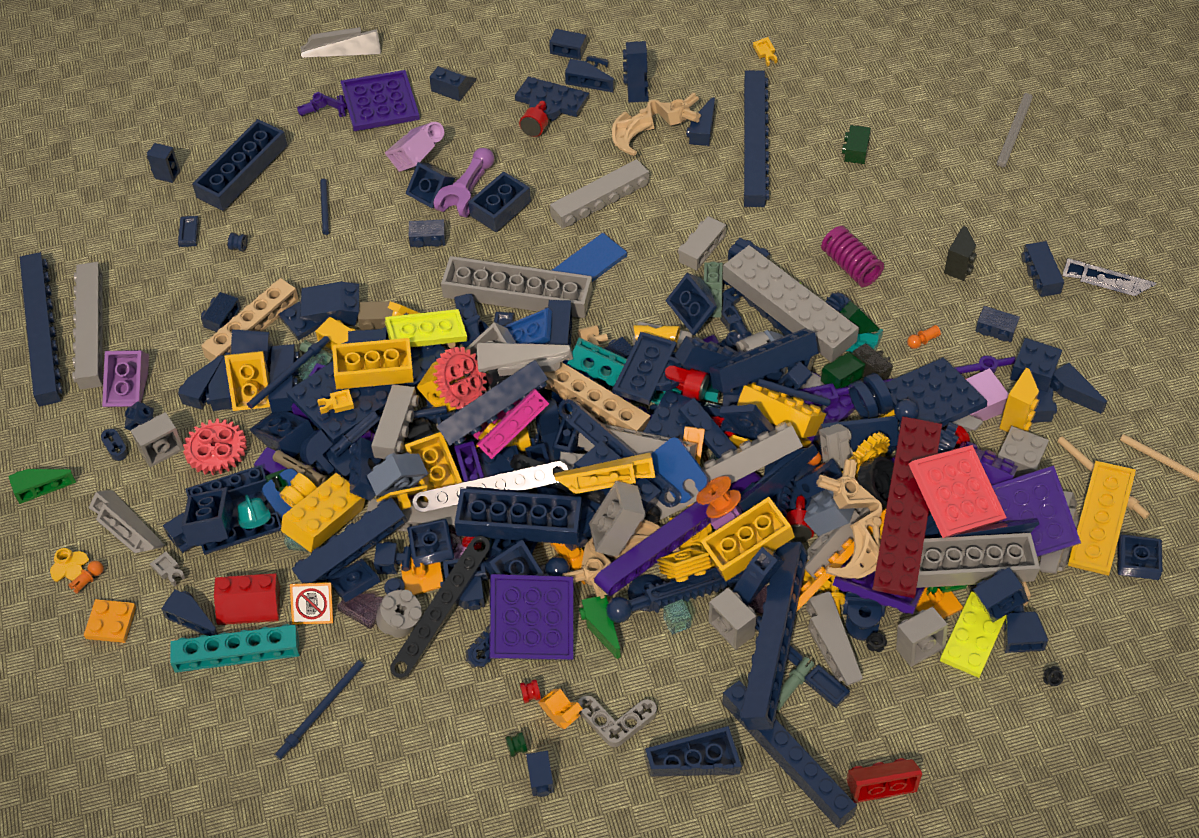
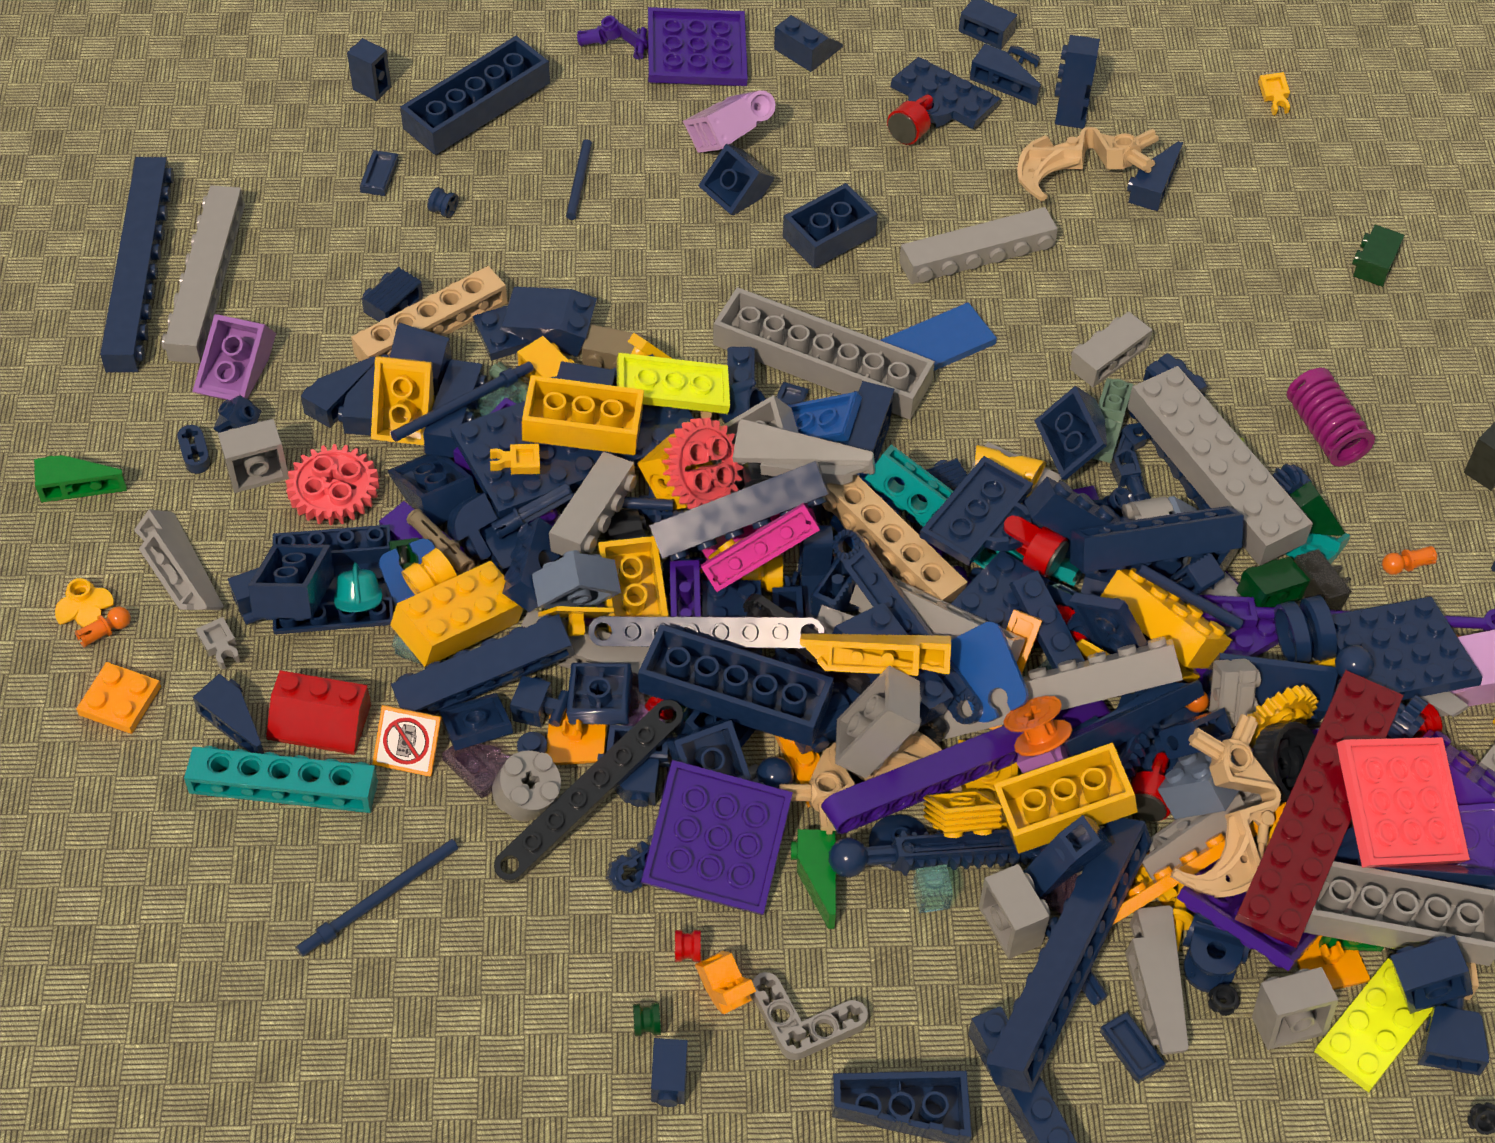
camera: 10 degrees right, 0 degrees up
(427, 233) = (713, 248): dark blue brick -> none
(461, 190) = (780, 196): medium lavender piece -> none
(592, 335) = (914, 447): tan arm -> none
(754, 139) = (1227, 216): dark blue brick -> none
(796, 677) = (1087, 1024): sand green pin -> none

